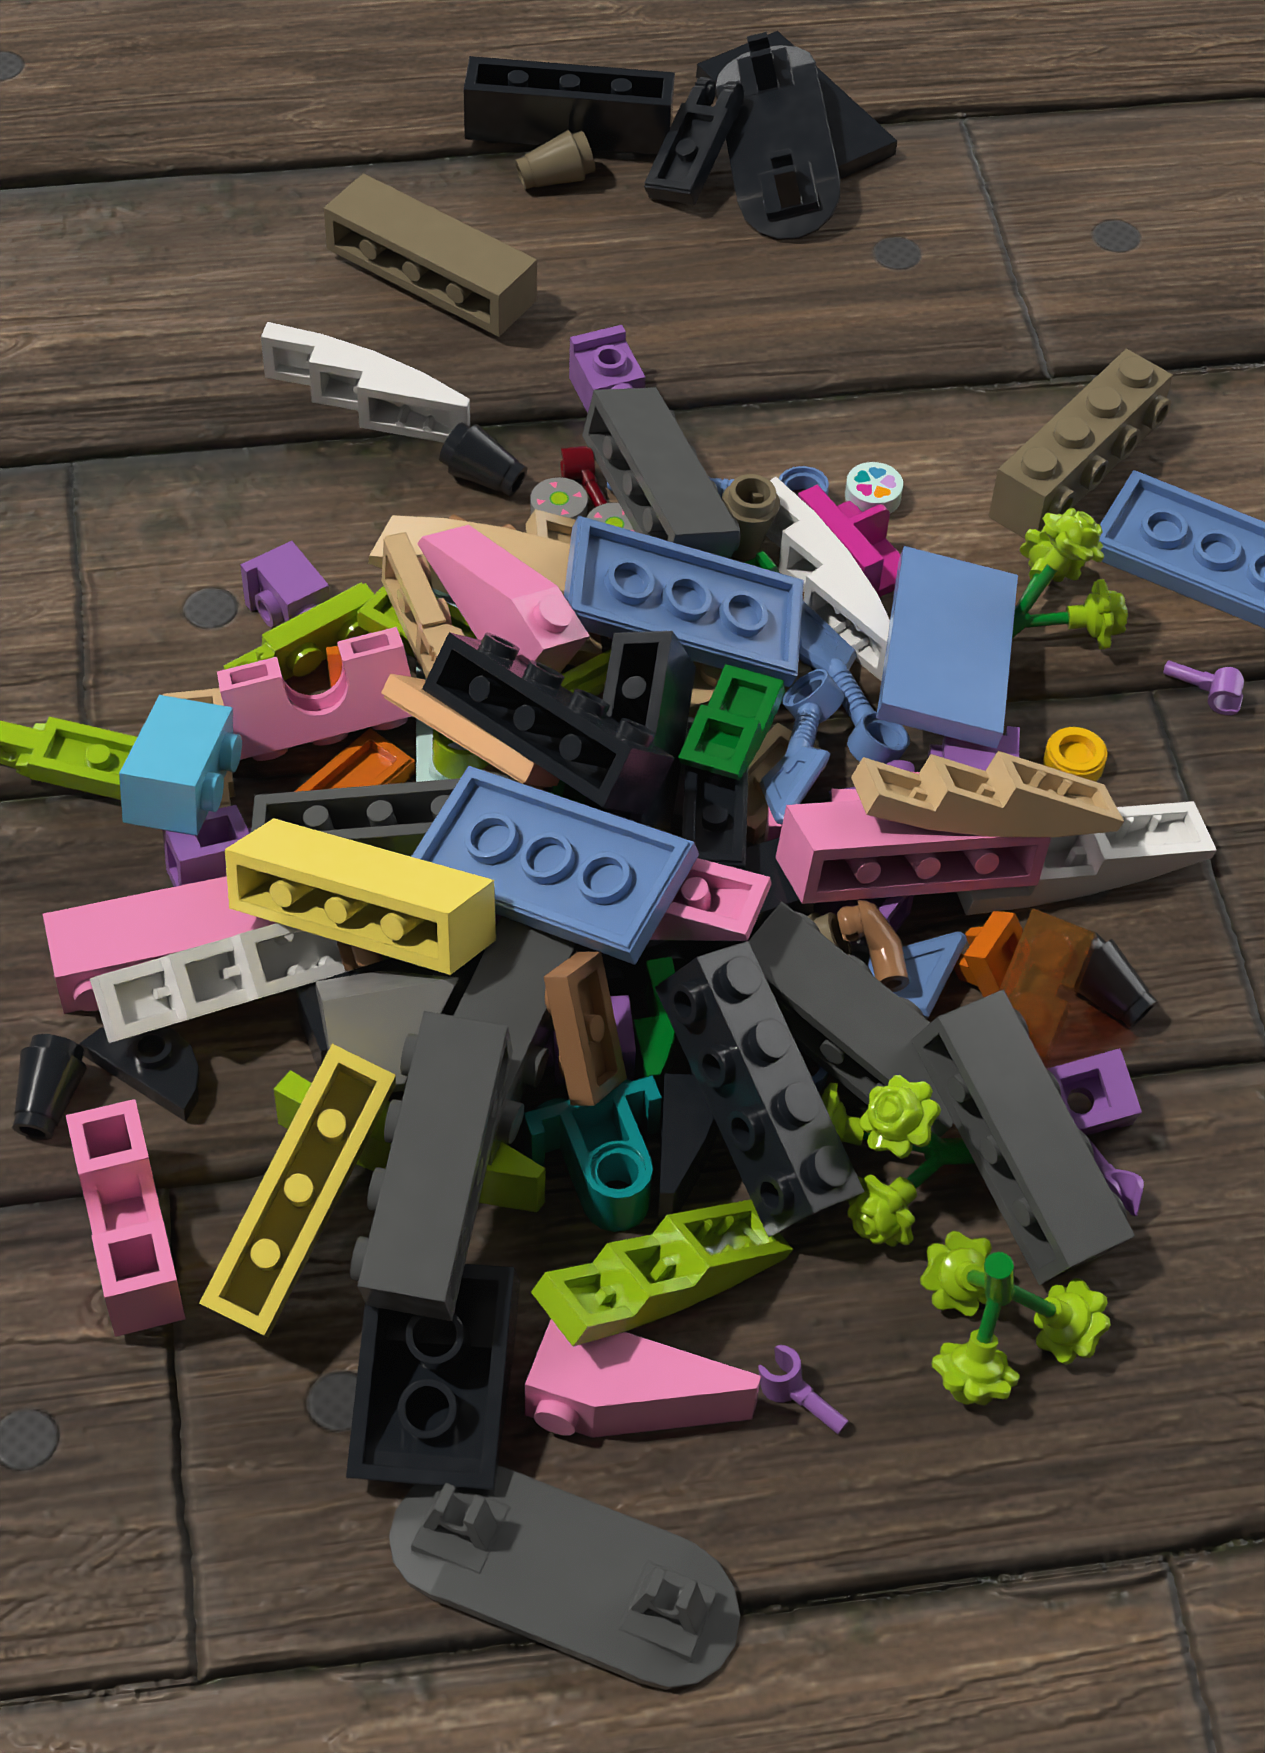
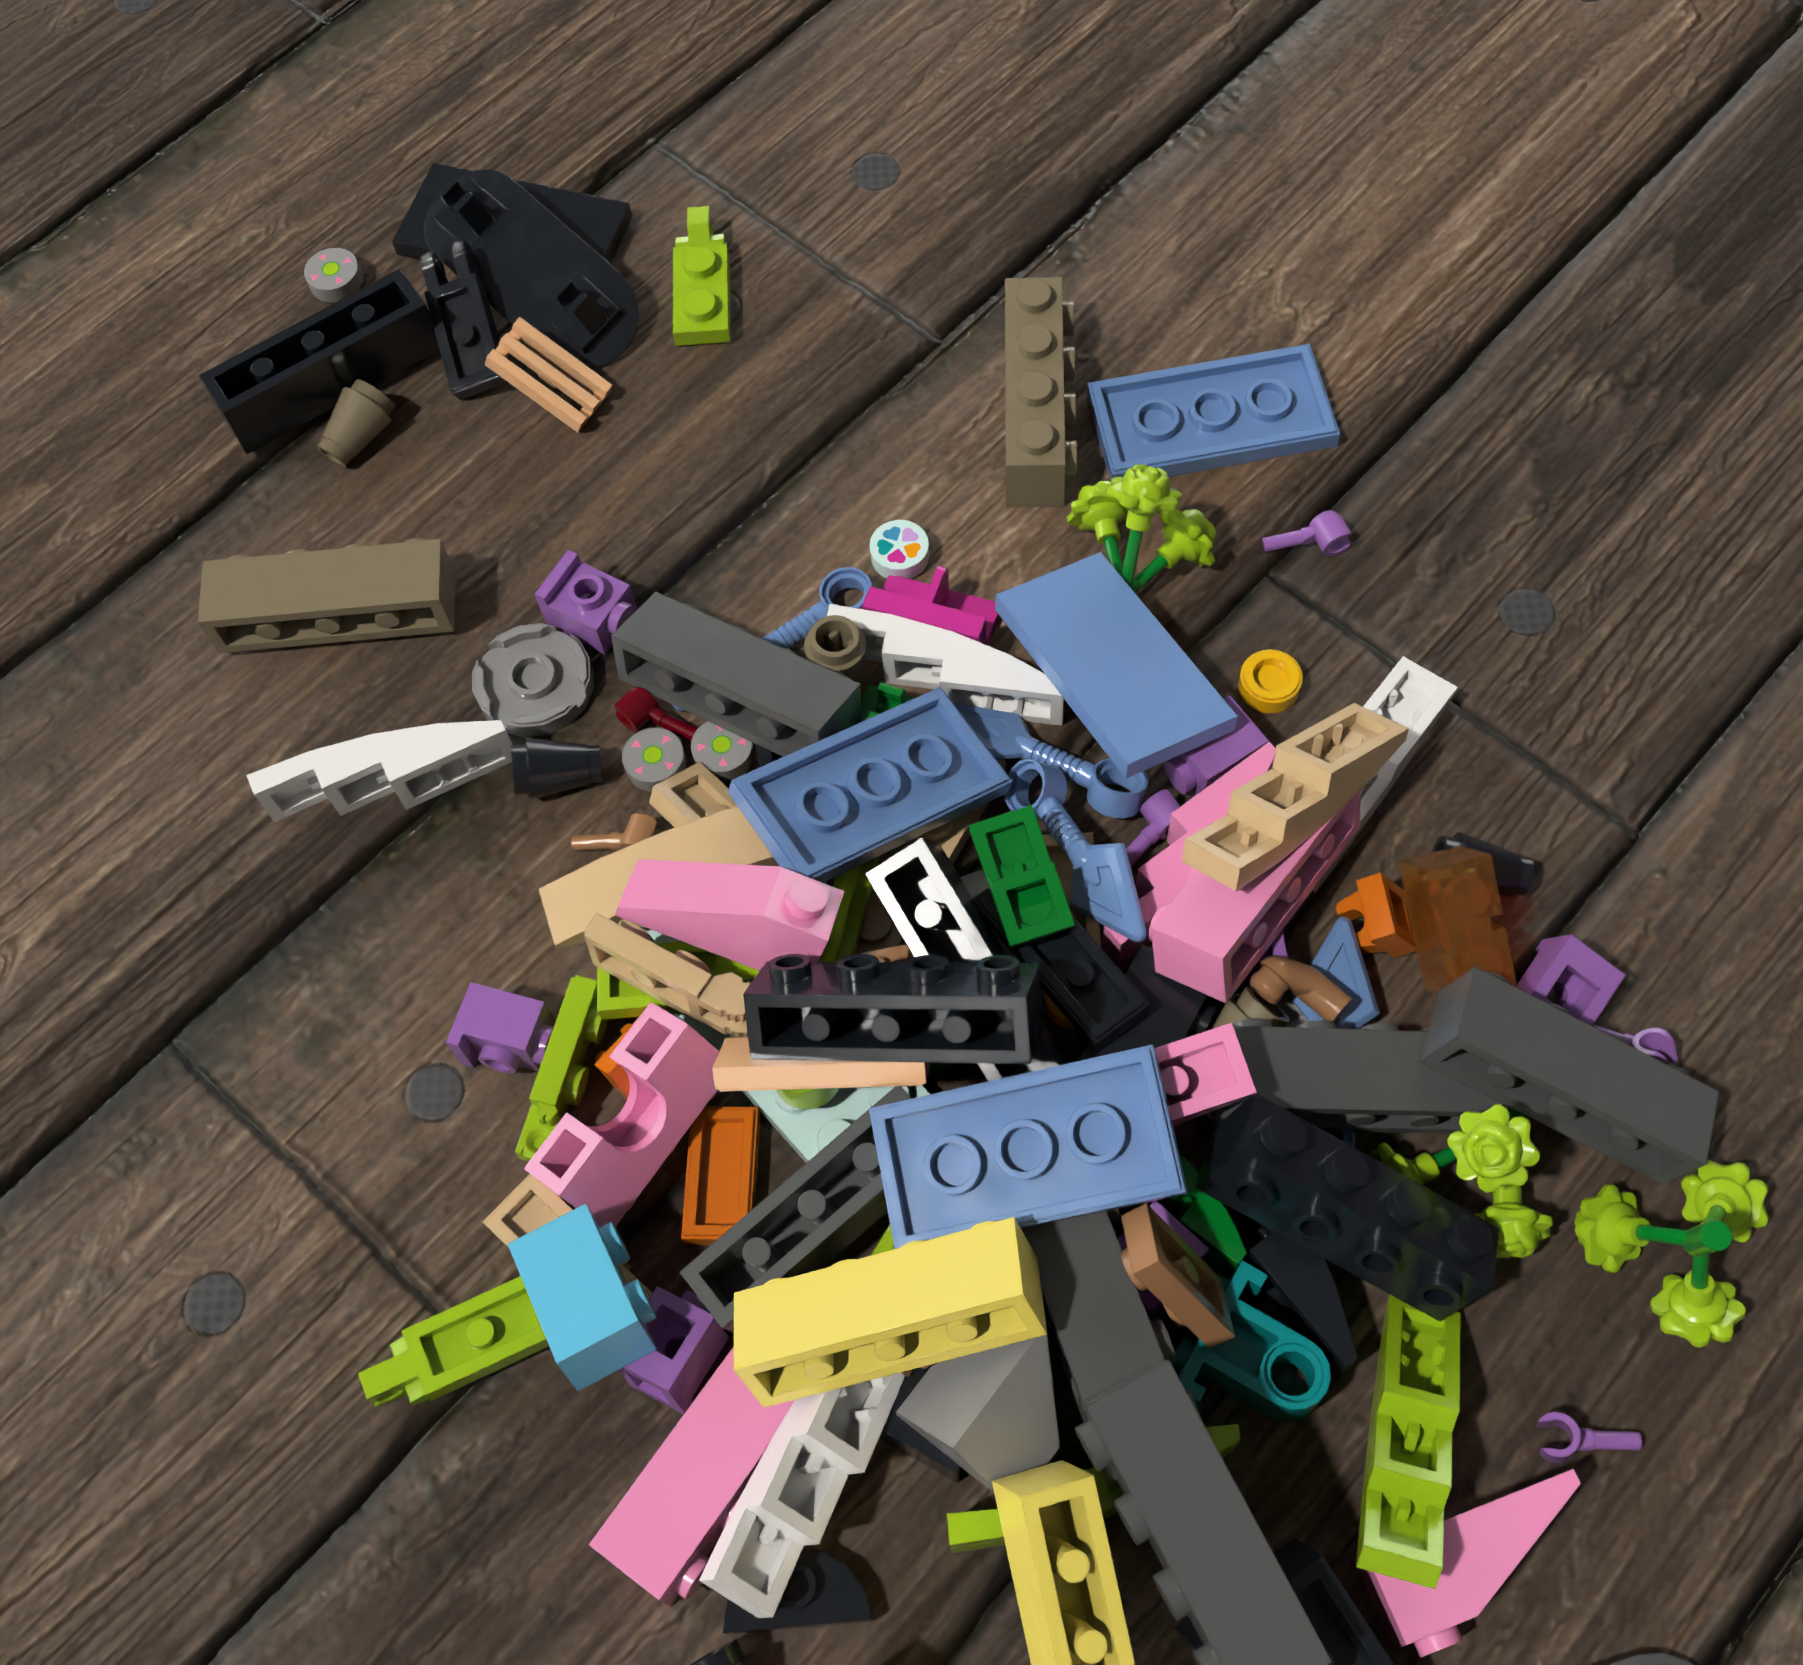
camera: 30 degrees left, 10 degrees up
(524, 402) = (533, 680): none -> light grey tile
(636, 55) = (333, 274): none -> light grey tile
(711, 174) = (560, 359): none -> light nougat tile
(901, 226) = (701, 283): none -> lime hinge

